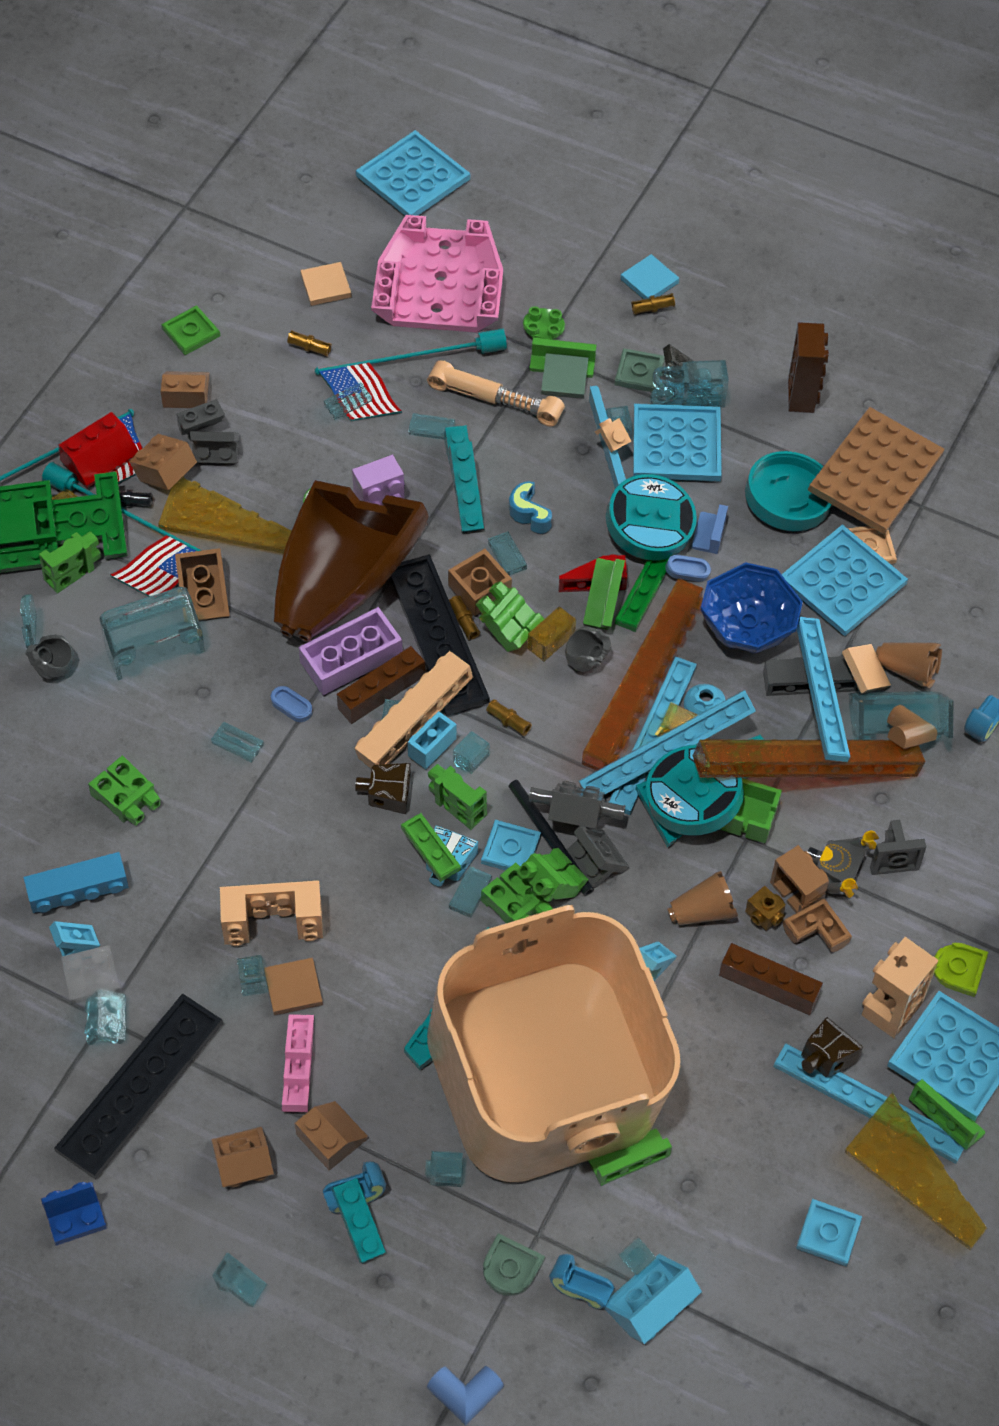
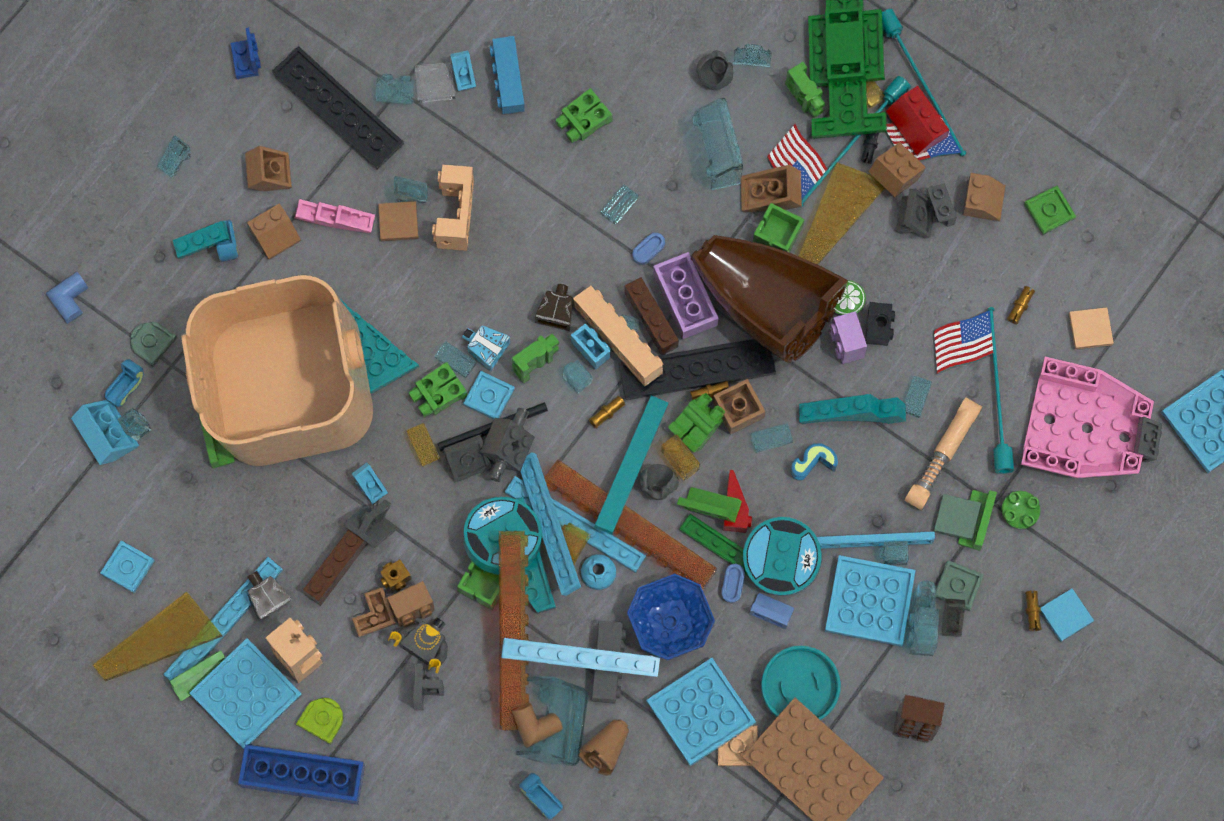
camera: 100 degrees right, 15 degrees up
(253, 568) = (780, 228): none -> bright green piece
(345, 460) = (875, 334): none -> black brick
(349, 403) = (958, 343): clear light blue tile -> none
(430, 847) = (489, 328): bright green tile -> none
(446, 220) = (1148, 439): none -> dark grey bracket
(552, 875) = (448, 407): bright green hips -> none
(573, 677) = (631, 465): none -> teal tile
(597, 902) = (423, 444): none -> clear yellow slope
(613, 434) = (873, 538): light nougat bracket -> none
(704, 902) = (408, 531): medium nougat cone -> none
(707, 943) = (371, 523): none -> dark grey bracket
(866, 668) = (601, 704): light nougat tile -> none

